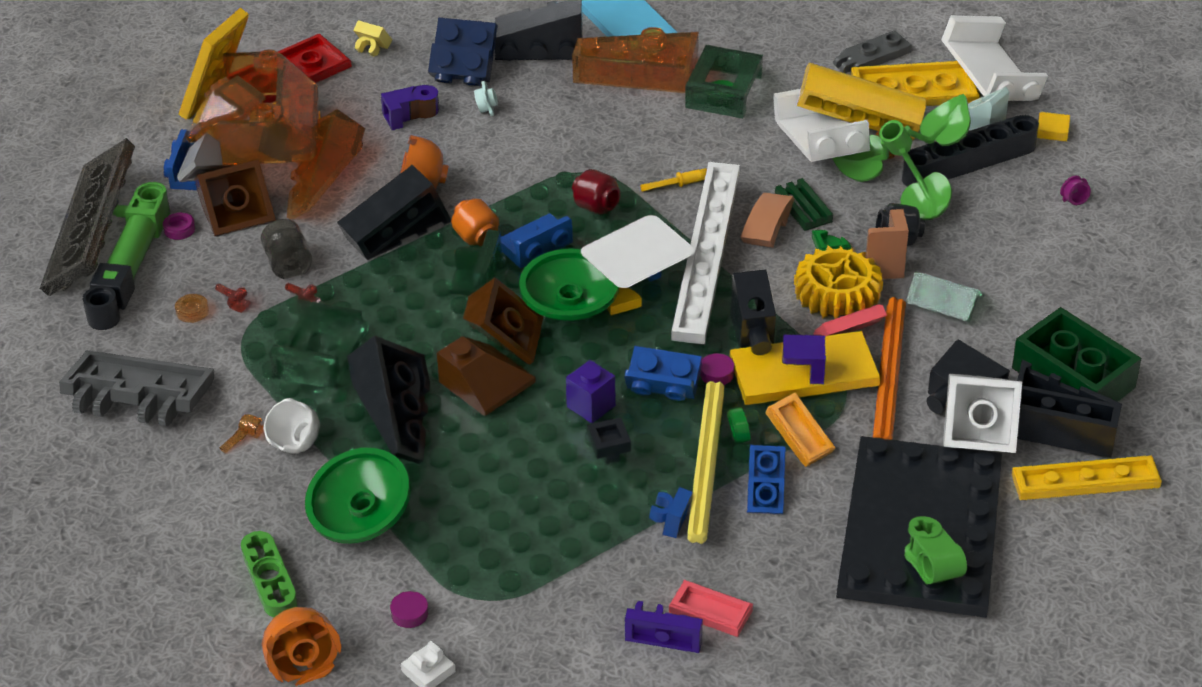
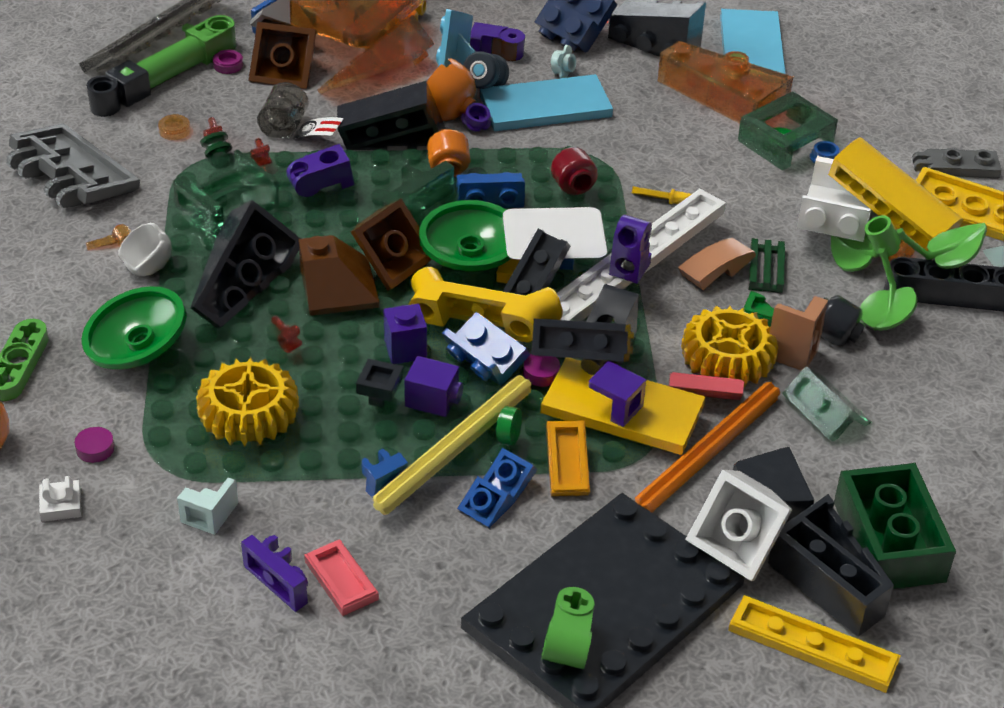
camera: 30 degrees right, 0 degrees up
(254, 306) = (216, 143): none -> dark green bush
(333, 249) = (319, 126): none -> sticker
(381, 287) = (320, 171): none -> dark purple leg
(401, 127) = (486, 68): none -> medium azure plate
(458, 180) = (476, 117): none -> dark purple plate
(492, 440) = (288, 337): none -> clear red hand
(501, 142) = (546, 102): none -> medium azure tile
(515, 508) = (247, 401): none -> yellow gear
(558, 611) = (208, 508): none -> light aqua panel
(652, 423) = (432, 386): none -> dark purple brick
(653, 297) = (537, 264): none -> black hinge
(675, 330) = (512, 311): none -> yellow plate
(717, 233) = (632, 245): none -> dark purple leg
(748, 327) = (582, 339): none -> black hinge
(766, 88) = (824, 149): none -> blue plate

